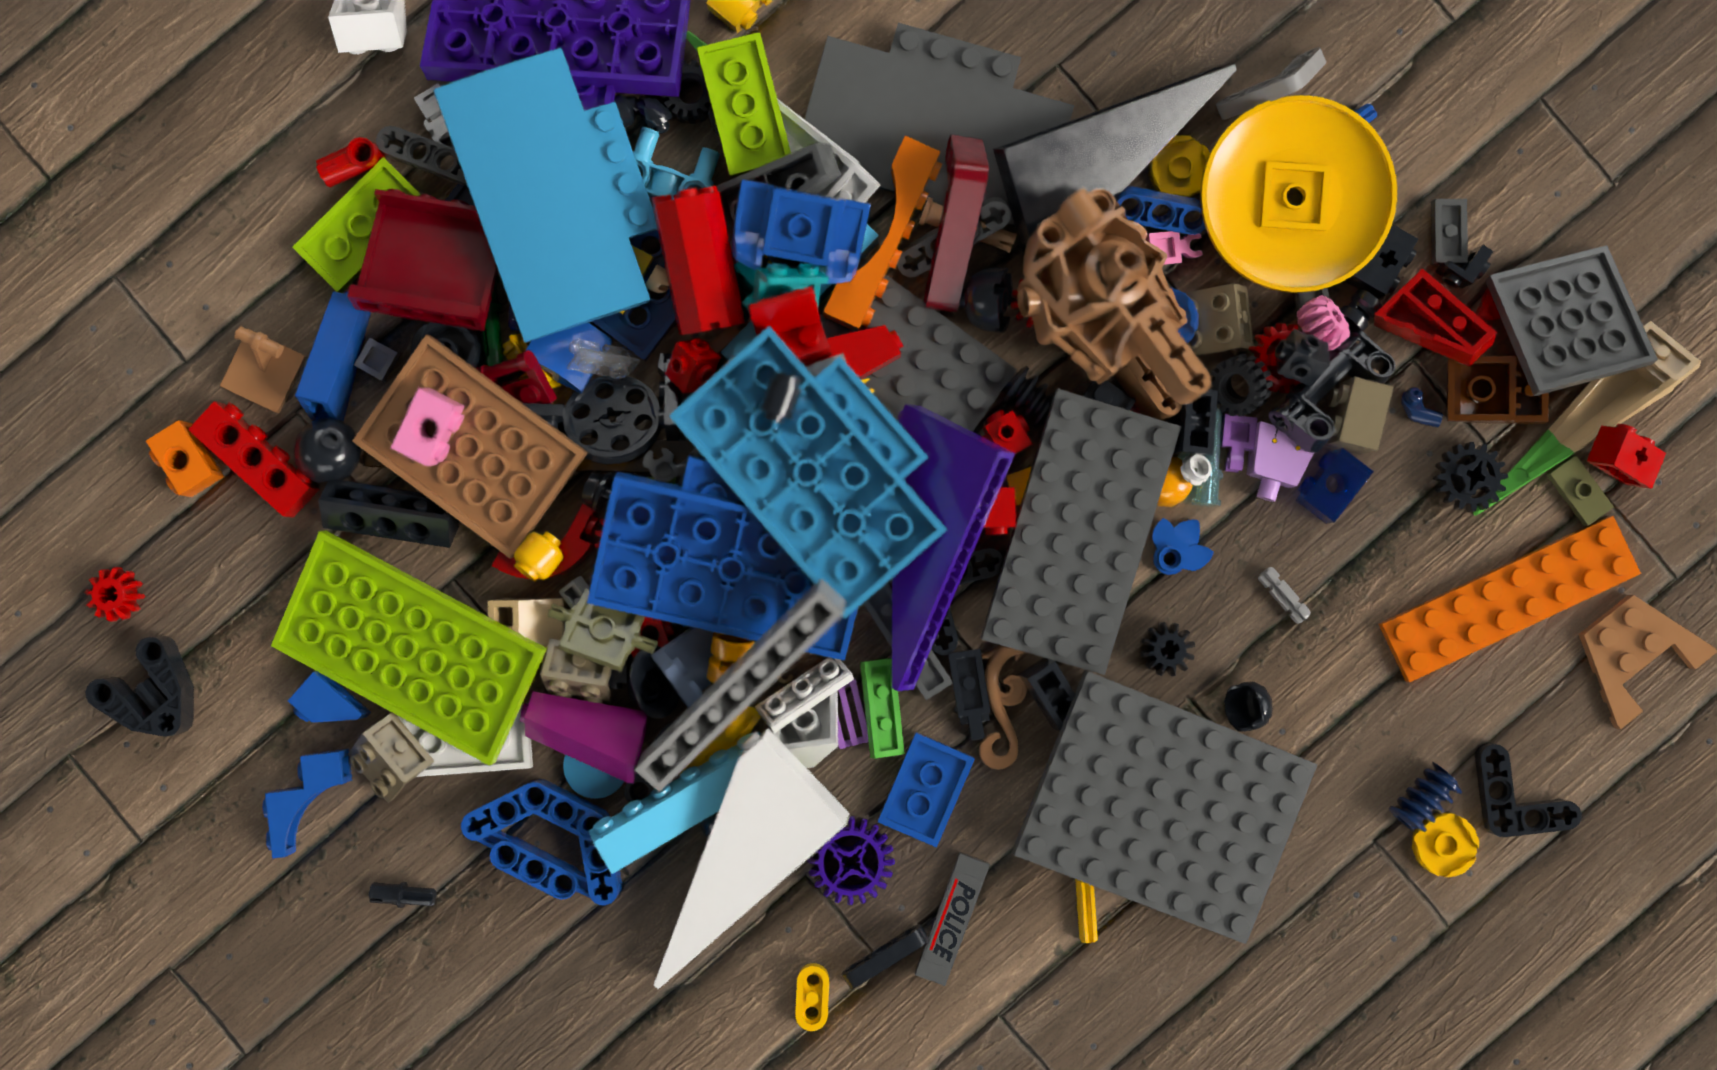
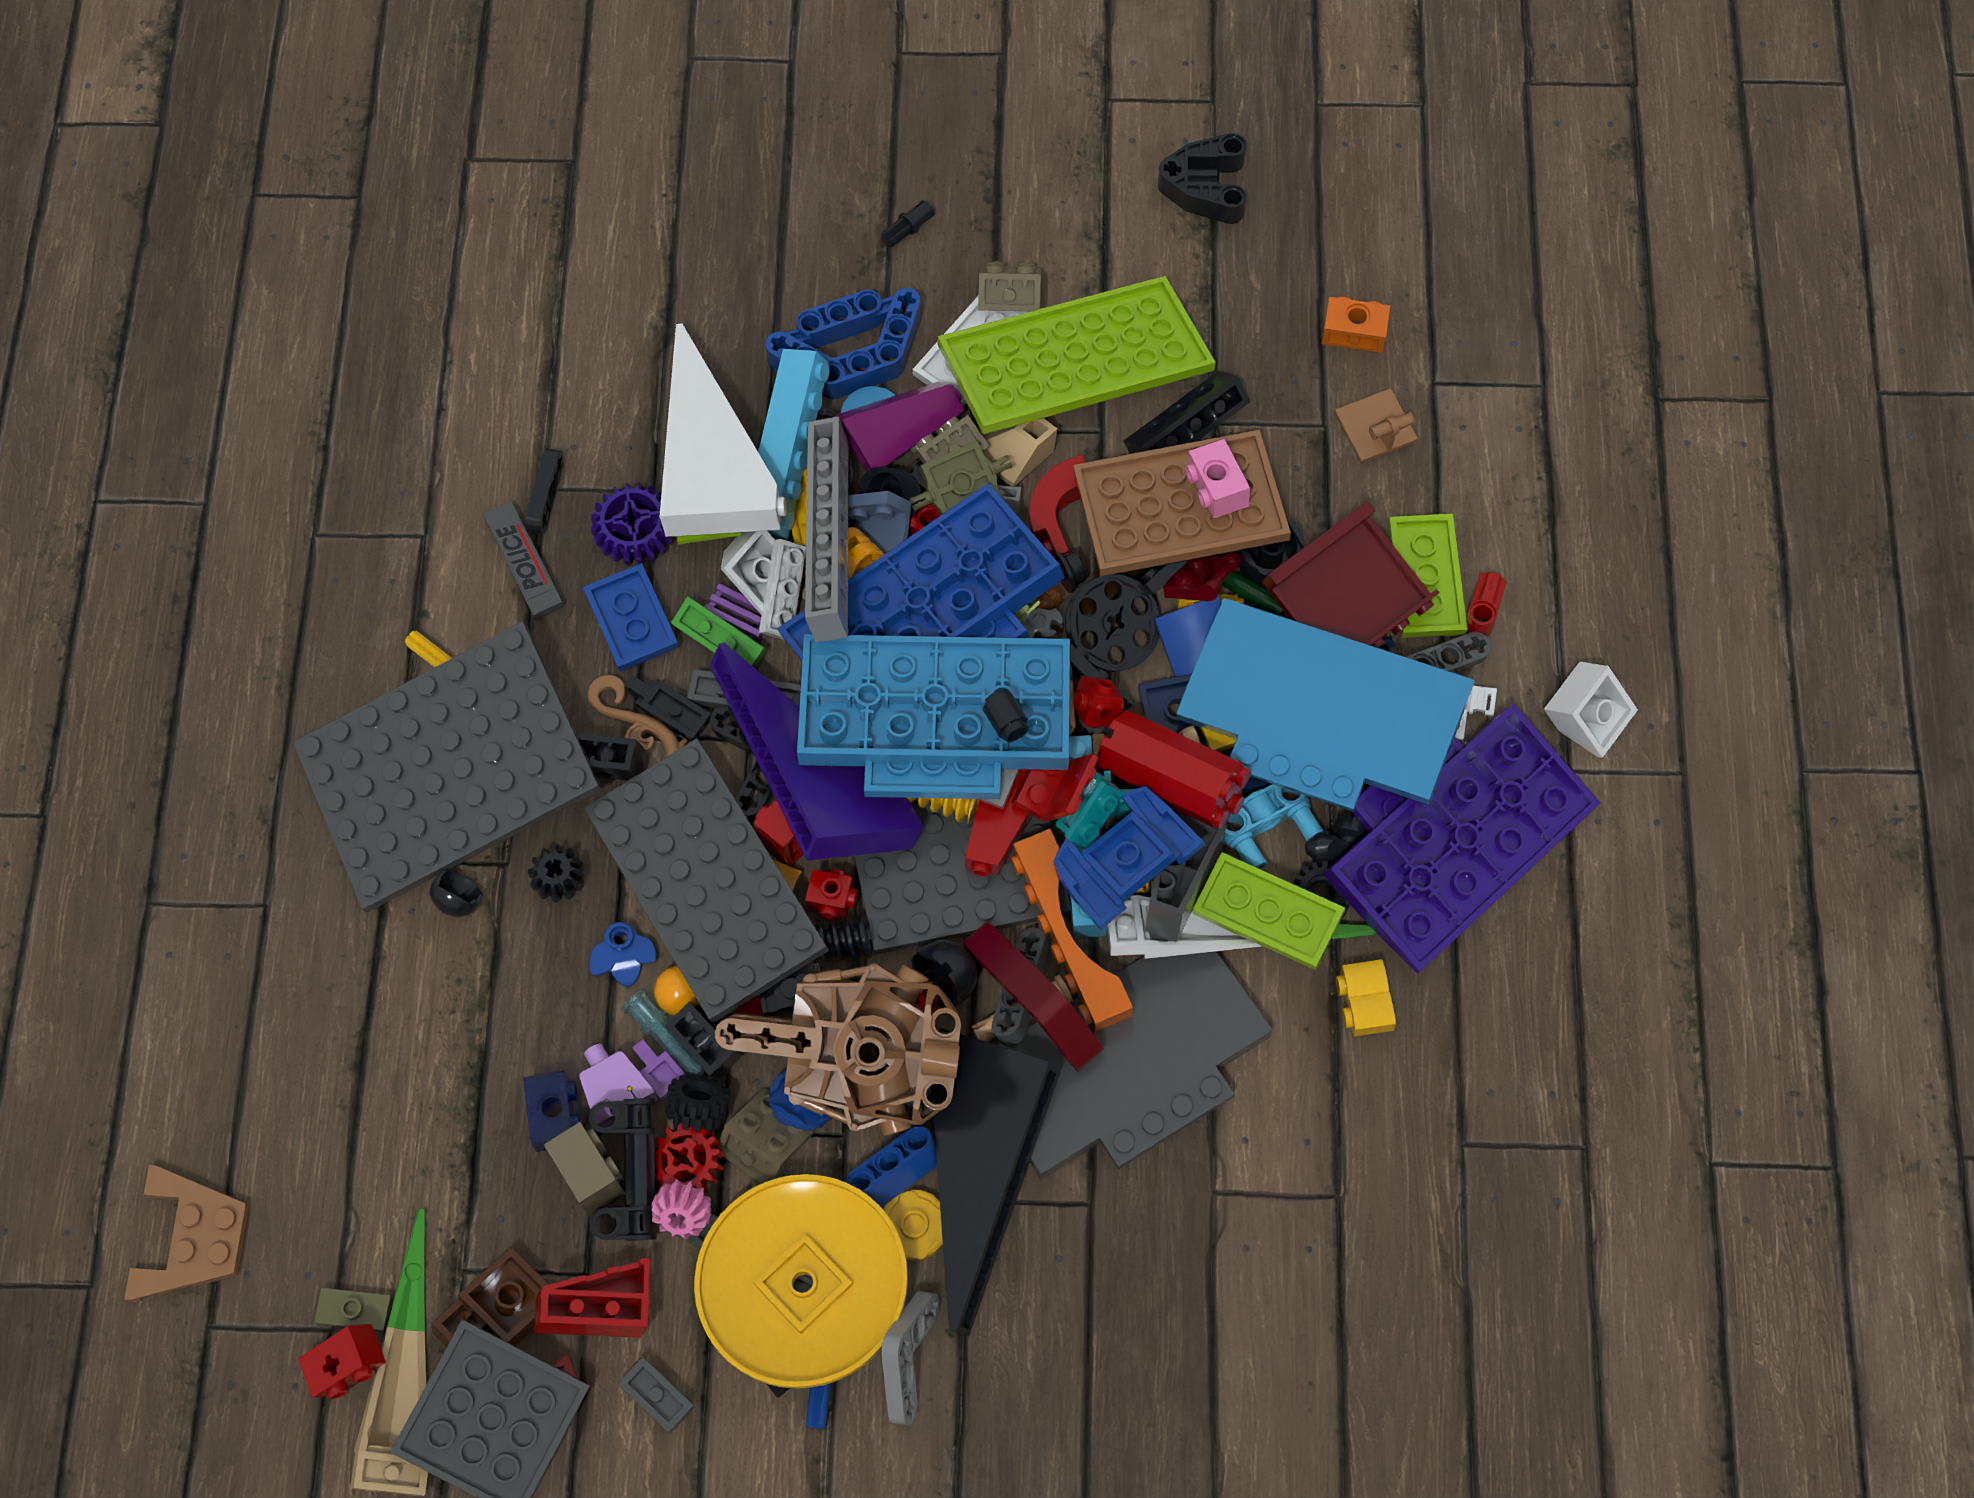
camera: 135 degrees right, 20 degrees down
(103, 594) = (1298, 208): red gear -> none
(213, 431) = (1325, 357): red brick -> none
(286, 806) = (1042, 199): blue arch -> none
(325, 701) = (1088, 277): blue slope -> none
(326, 450) = (1275, 414): black cylinder -> none
(330, 366) = (1335, 469): blue slope -> none
(377, 359) = (1313, 507): light grey tile -> none
(538, 556) = (1056, 484): yellow head -> none
(611, 362) = (1171, 642): clear hinge -> none
(812, 996) = (569, 423): yellow plate -> none
(1173, 246) = (856, 1149): bright pink plate -> none
(1196, 469) = (659, 1000): white plate -> none
(1284, 595) = (507, 1000): light grey axle -> none
(1302, 357) = (671, 1155): black brick -> none
(1360, 309) = (664, 1258): black wheel -> none
(1398, 254) = (679, 1336): black brick -> none
(1415, 410) = (543, 1235): dark blue arm -> none
(1426, 798) = (252, 964): dark blue piece -> none
(1446, 846) = (207, 953): yellow tile -> none
(1466, 274) = (608, 1387): black bracket -> none
(1483, 480) = (438, 1230): black gear -> none
(1509, 598) = (329, 1176): orange plate -> none
(1515, 812) = (175, 1026): black beam -> none

